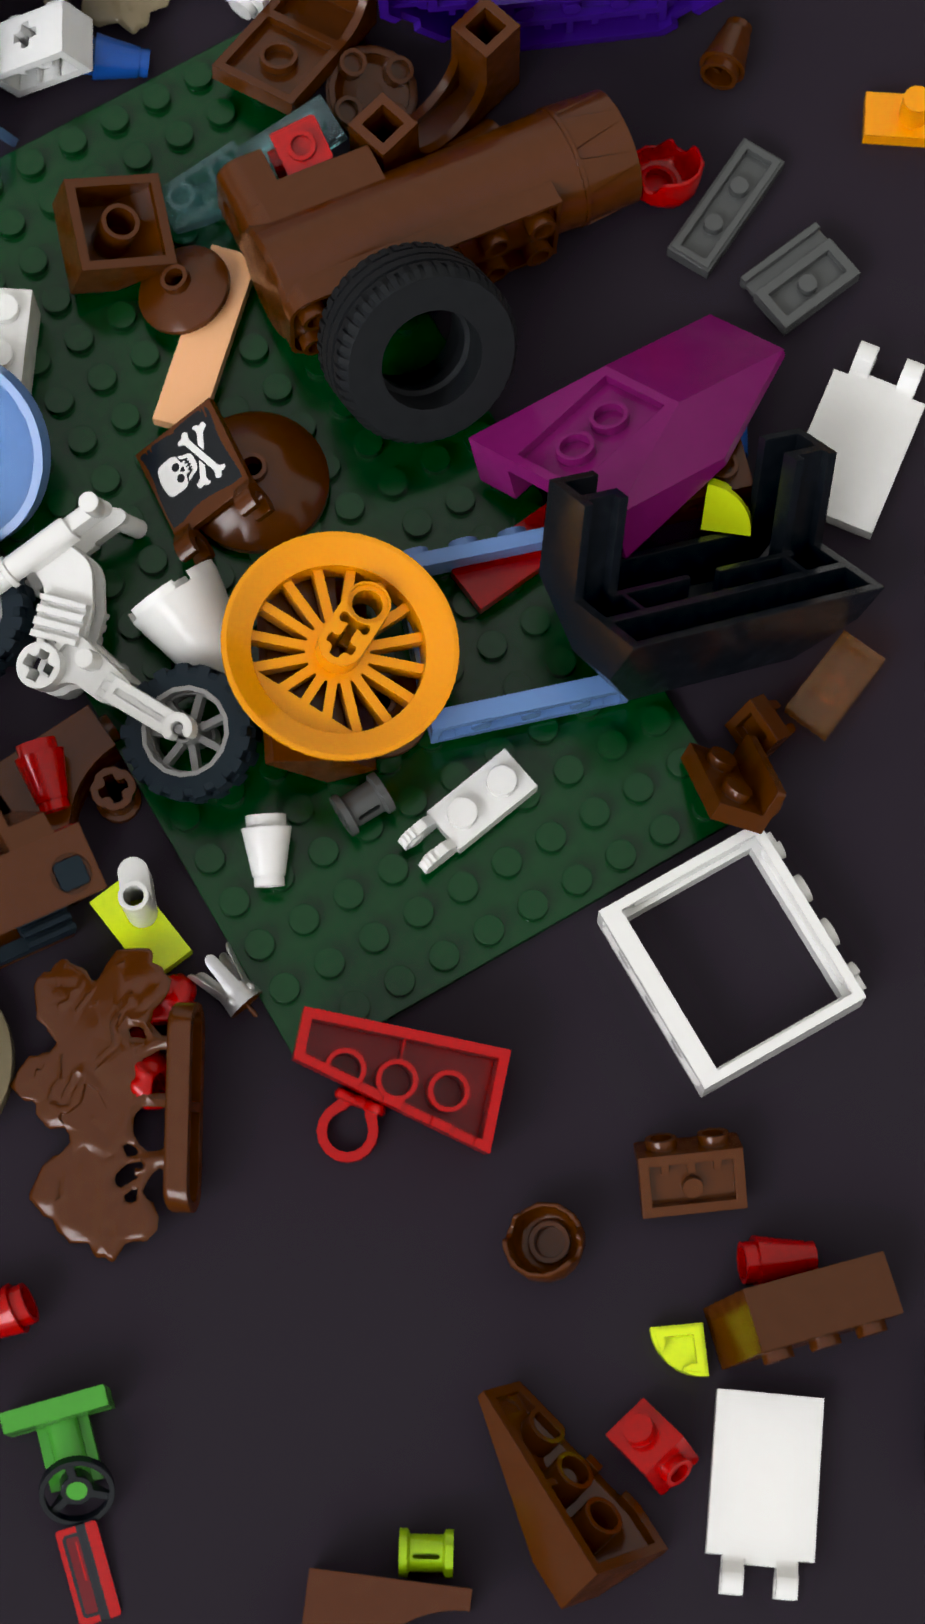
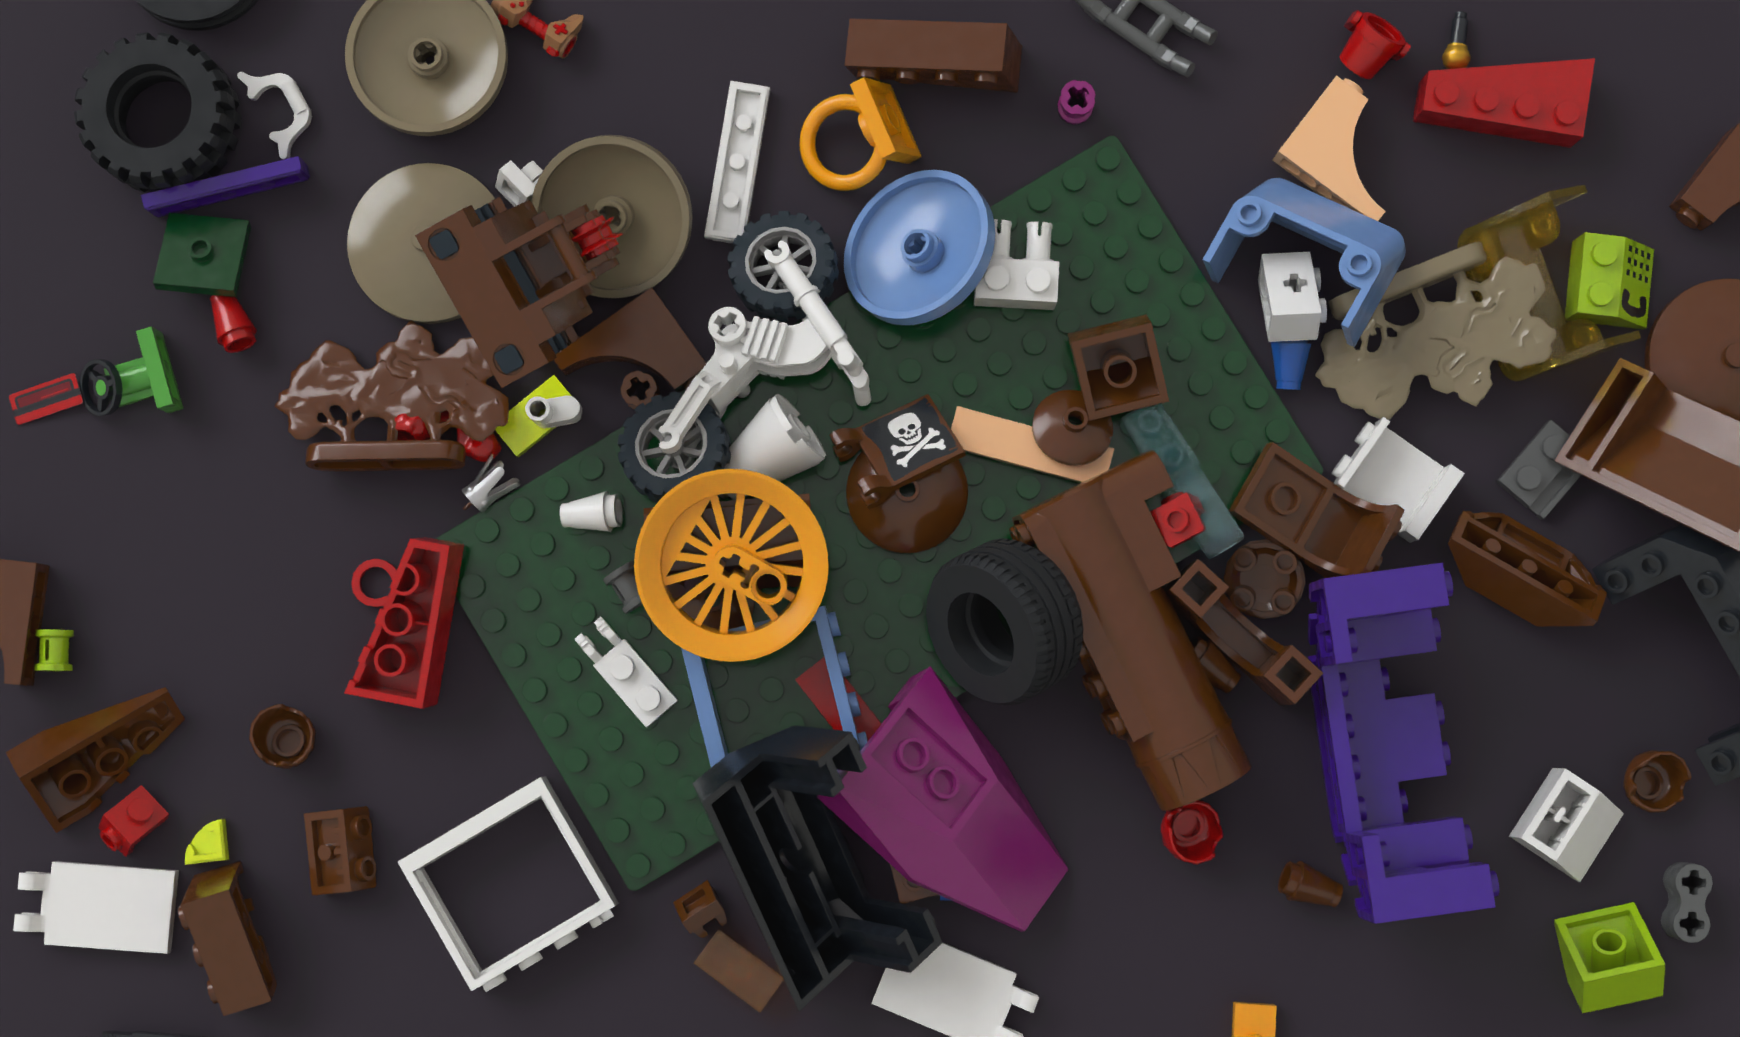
camera: 90 degrees right, 10 degrees up
(44, 773) = (643, 334): red cone -> none
(725, 208) = (1167, 883): dark grey tile -> none
(725, 510) = (875, 880): neon yellow tile -> none
(736, 787) = (644, 886): reddish brown bracket -> none
(772, 1258) = (272, 916): red cone -> none
(799, 278) = (1099, 946): dark grey plate -> none

